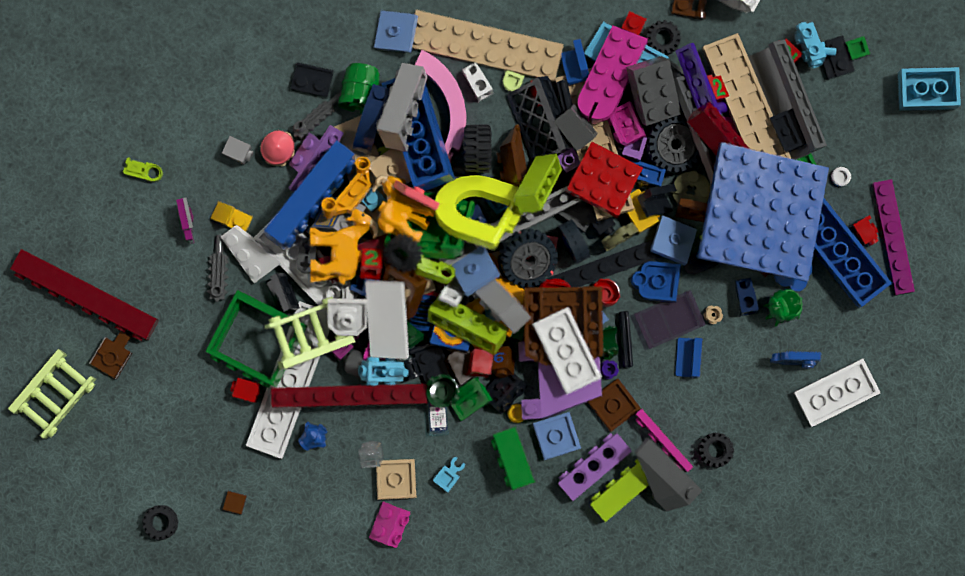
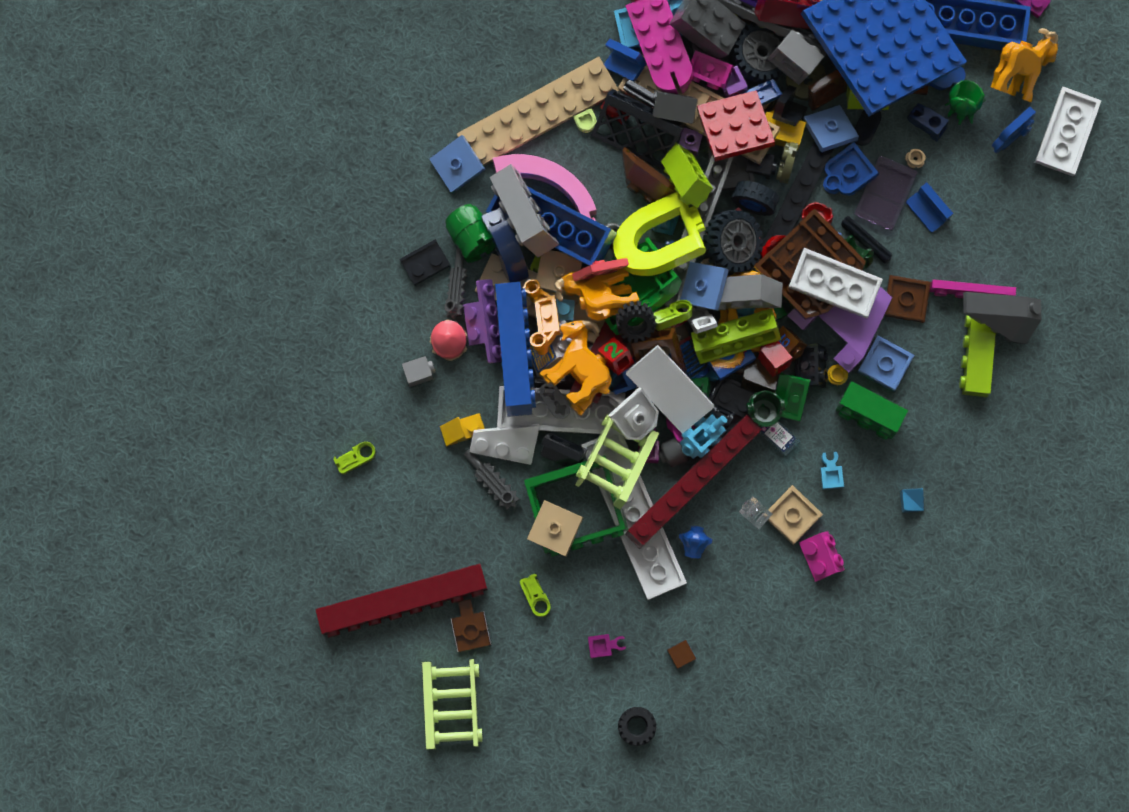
camera: 45 degrees left, 5 degrees down
(175, 371) = (534, 594): none -> lime piece
(186, 218) = (429, 460): magenta piece -> none
(187, 447) = (601, 645): none -> magenta plate
(226, 341) = (555, 528): none -> tan plate
(245, 390) = (605, 555): red brick -> none
(477, 148) = (611, 194): black tyre -> none
(478, 81) = (559, 144): white leg -> none
(485, 544) = (912, 500): none -> dark azure slope
(609, 364) = (879, 270): dark purple plate -> none
(620, 451) = (947, 330): medium lavender brick -> none
(692, 169) = (796, 57): none -> light grey slope
(704, 450) = (1027, 251): black tyre -> none
(848, 318) = (1024, 64): none -> light orange animal

